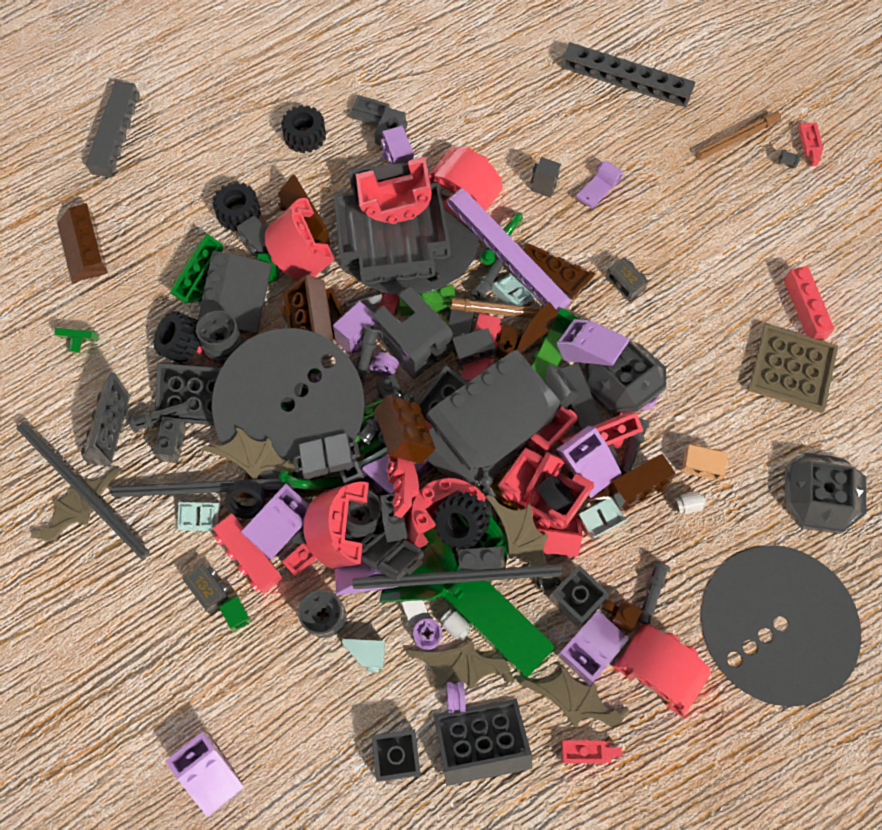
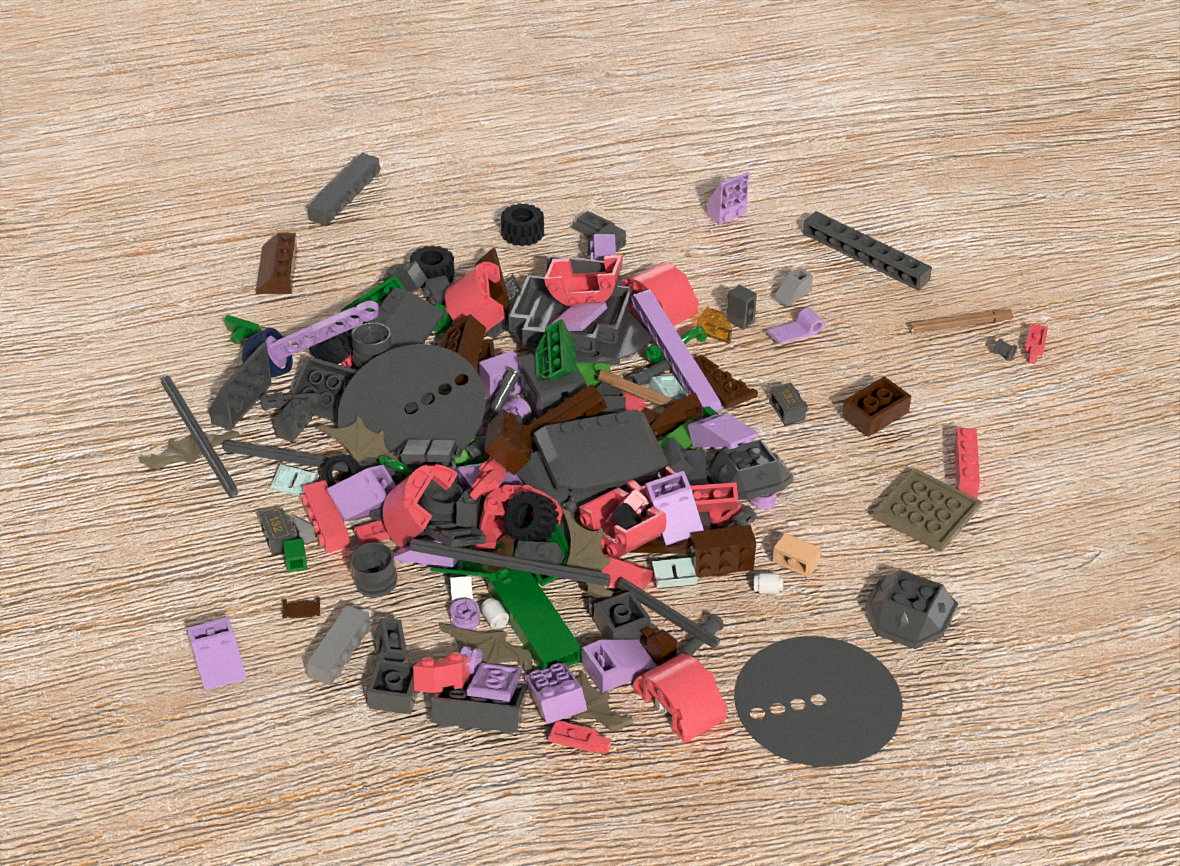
camera: 20 degrees right, 25 degrees down
(122, 358) = (281, 350): none -> lavender piece
(218, 227) = (408, 274): none -> dark grey brick
(232, 580) = (304, 530): none -> light grey slope
(265, 677) = (301, 609): none -> reddish brown piece
(322, 719) = (338, 645): none -> light grey brick
(325, 213) = (512, 288): none -> dark grey sticker
(367, 653) = (403, 609): light aqua slope -> none
(372, 702) = (390, 640): none -> dark grey brick
(406, 240) = (581, 315): none -> lavender tile
(411, 308) = (555, 353): none -> green wedge
(435, 740) = (433, 675): none -> coral brick
(446, 375) = (580, 406): none -> reddish brown brick
(487, 52) = (729, 199): none -> lavender slope
(490, 717) = (494, 682): none -> lavender tile
(527, 202) = (715, 325): none -> clear yellow slope
(550, 707) = (556, 692): none -> lavender slope
(582, 138) = (794, 287): none -> light grey slope
(620, 576) = (669, 613): none -> dark grey axle
(708, 261) = (876, 406): none -> reddish brown brick

